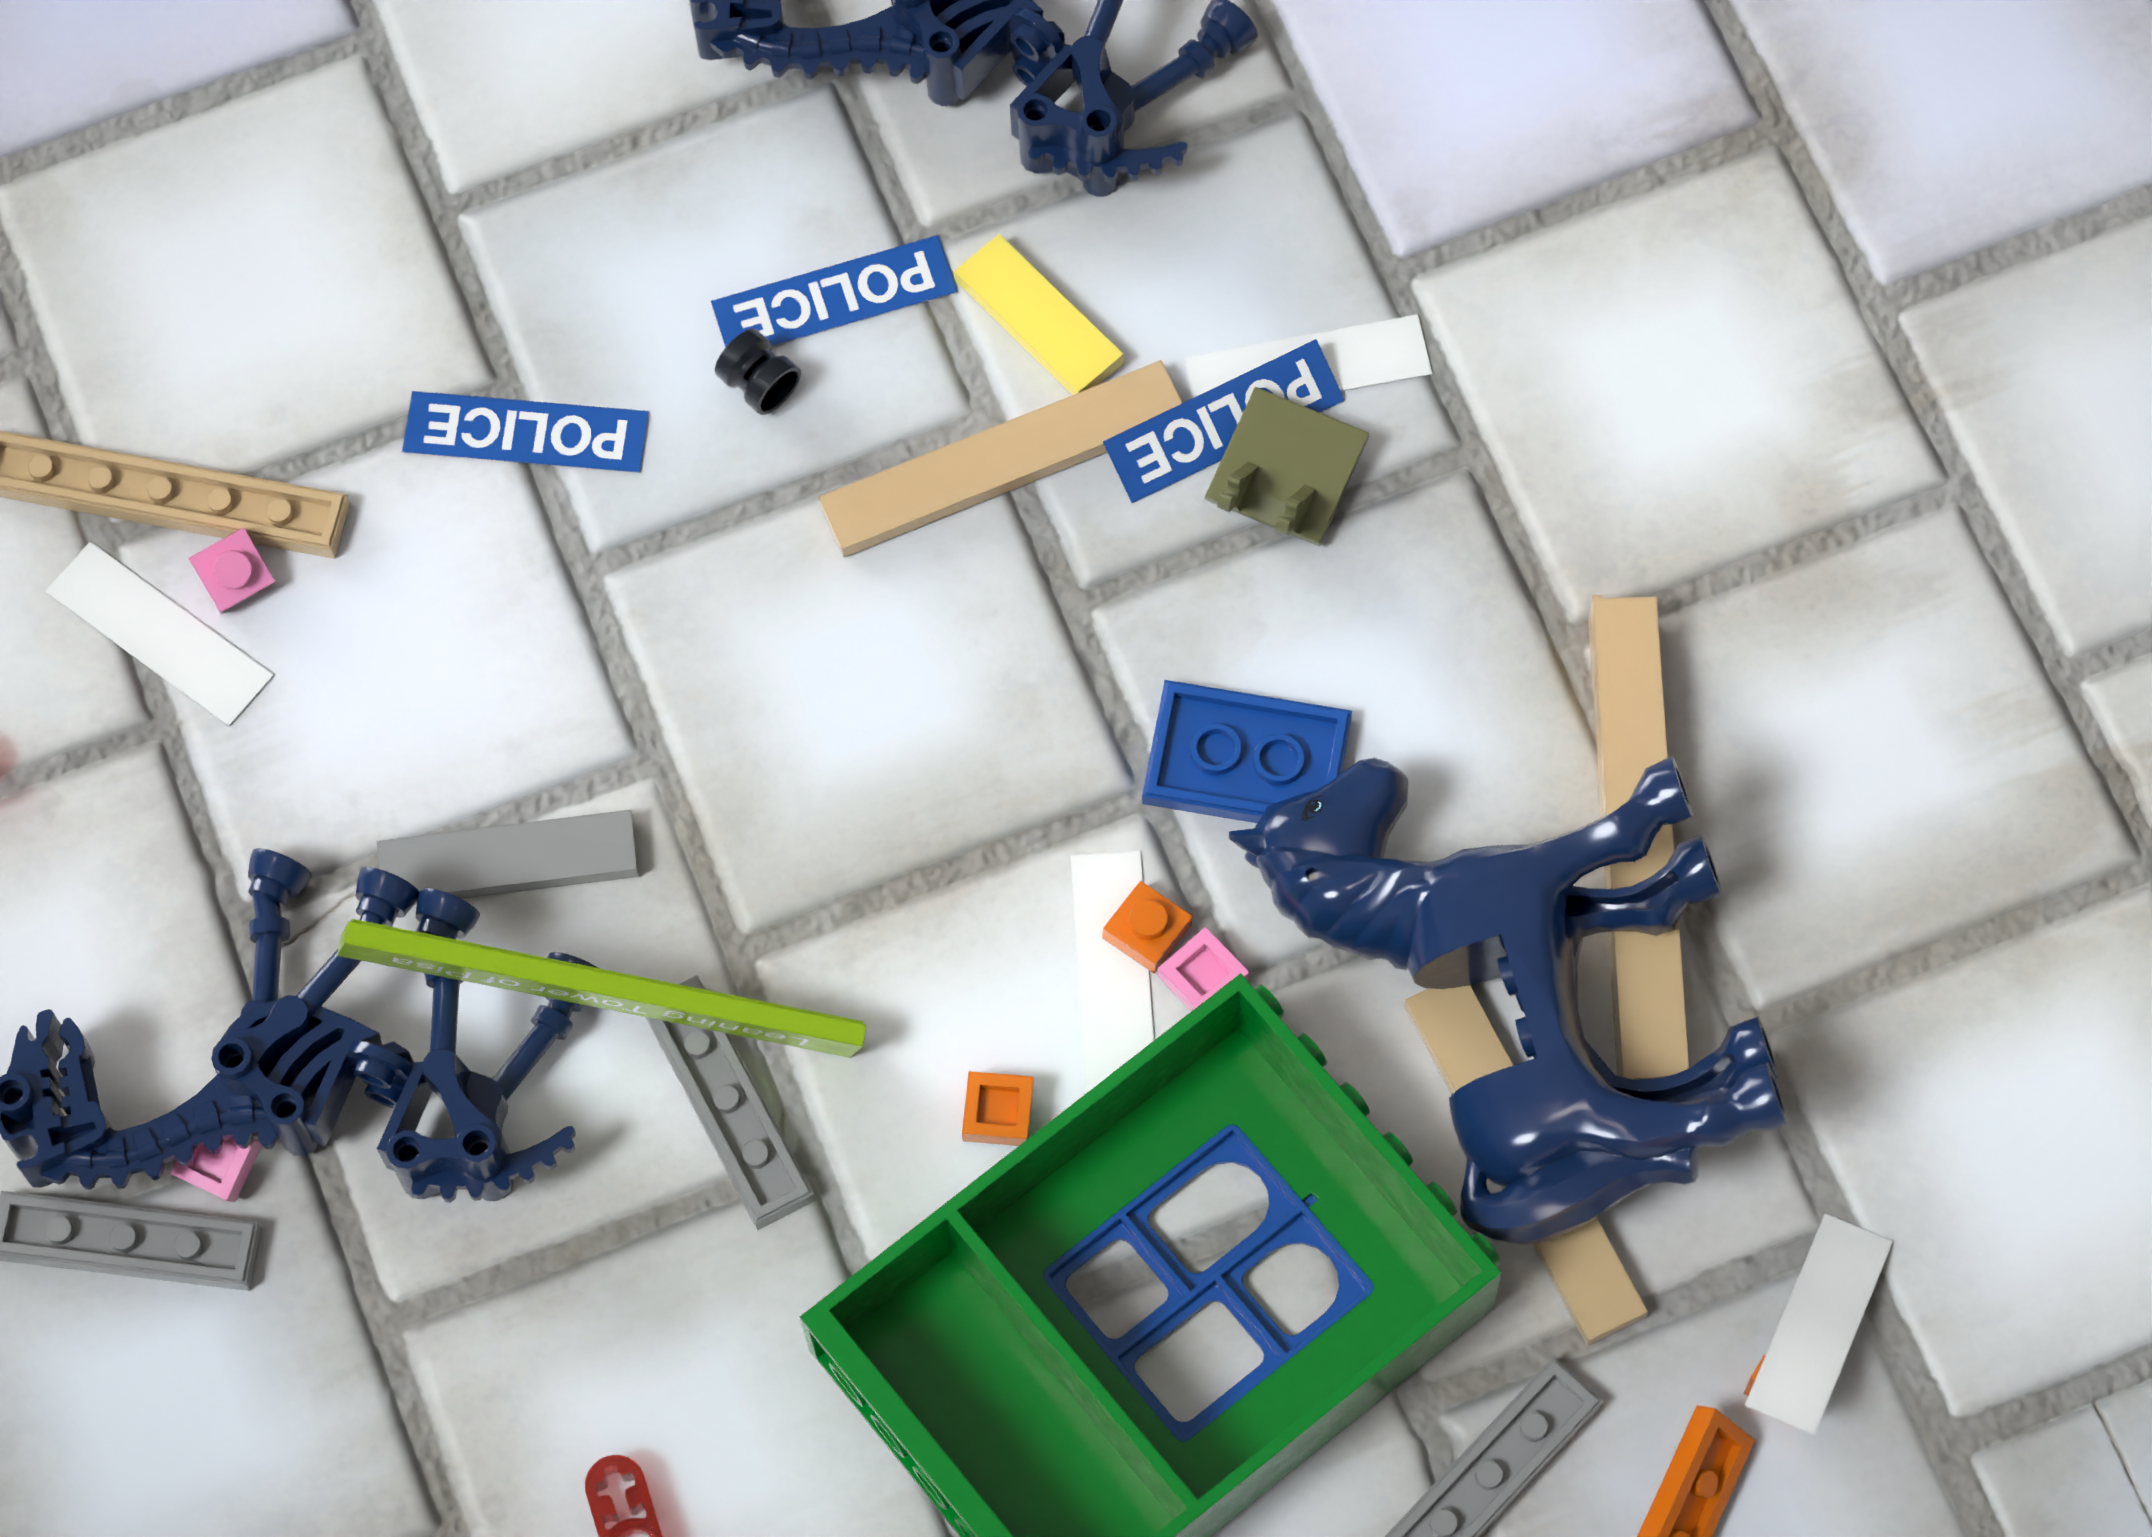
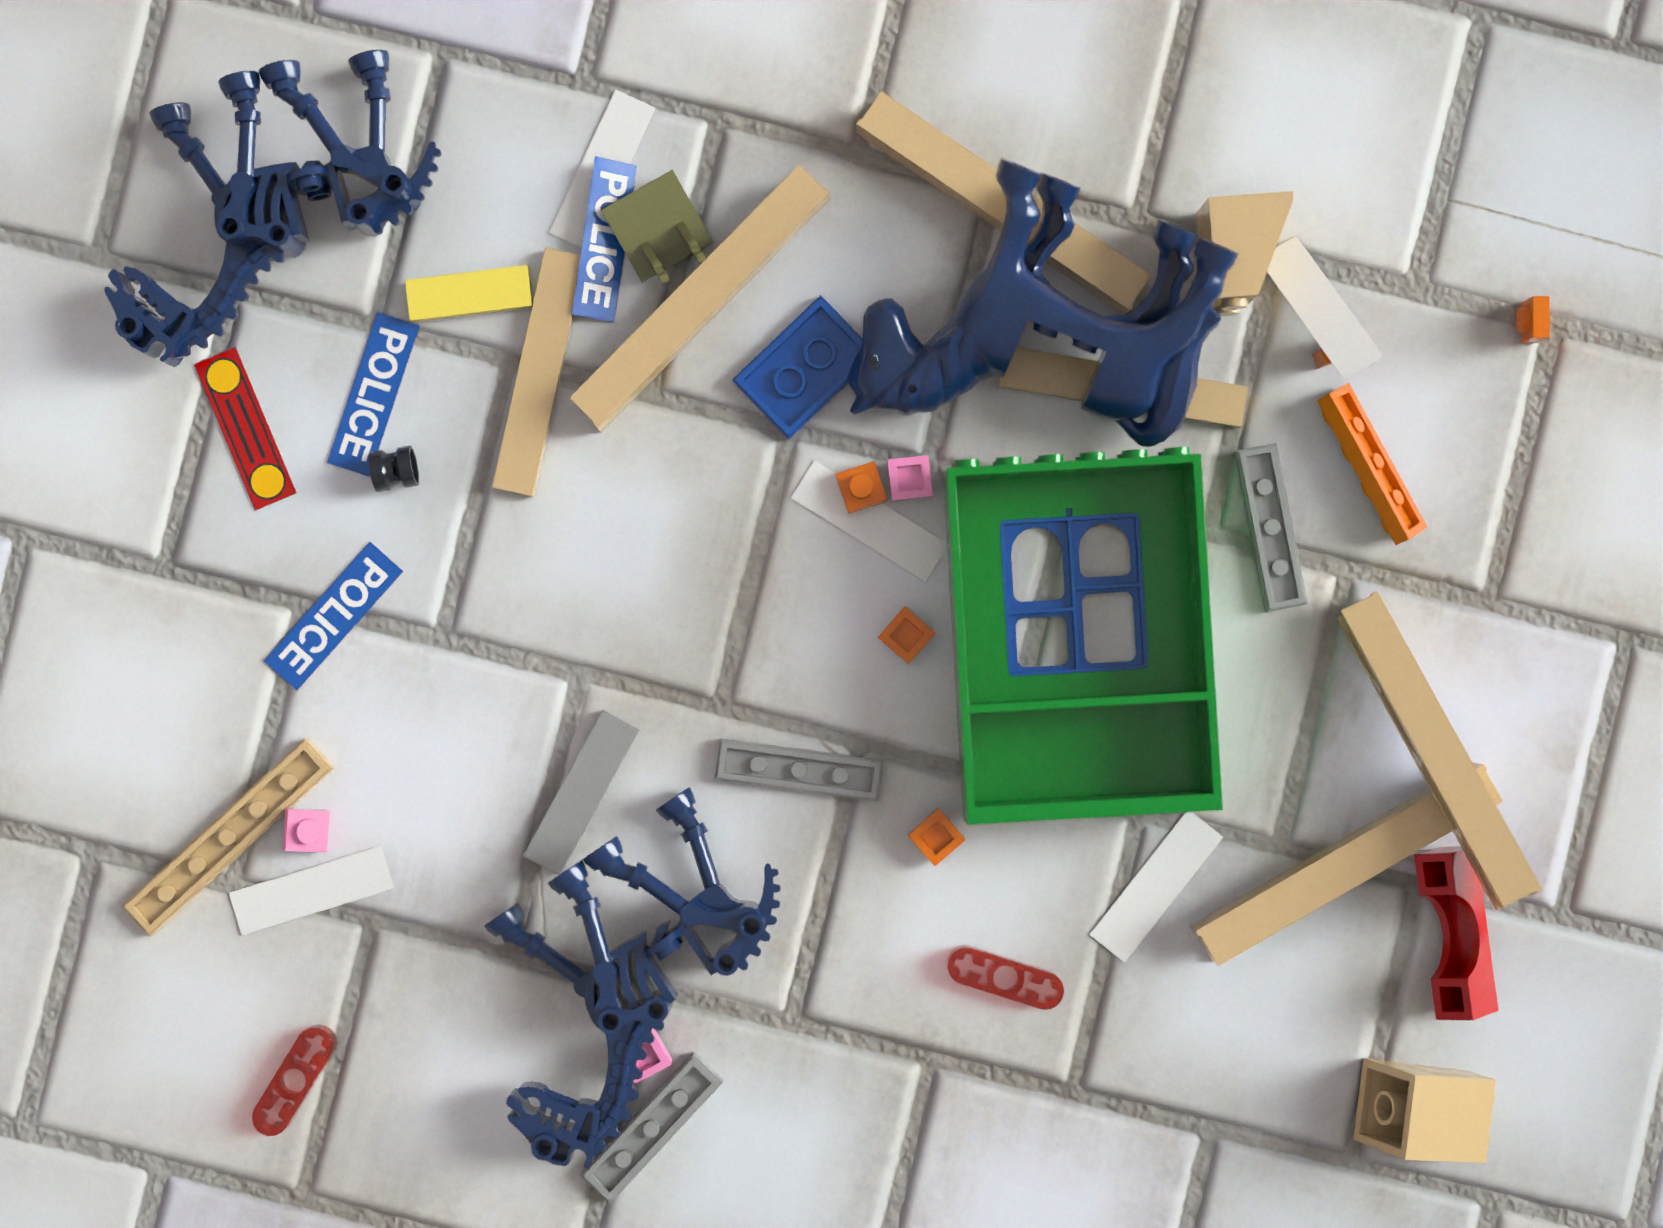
camera: 55 degrees left, 20 degrees up
(600, 988) = (706, 803): lime tile -> none
(684, 187) = (245, 428): none -> sticker
(760, 1329) = (936, 837): none -> orange plate
(1236, 572) = (700, 297): none -> tan tile
(1825, 1163) = (1251, 228): none -> tan slope

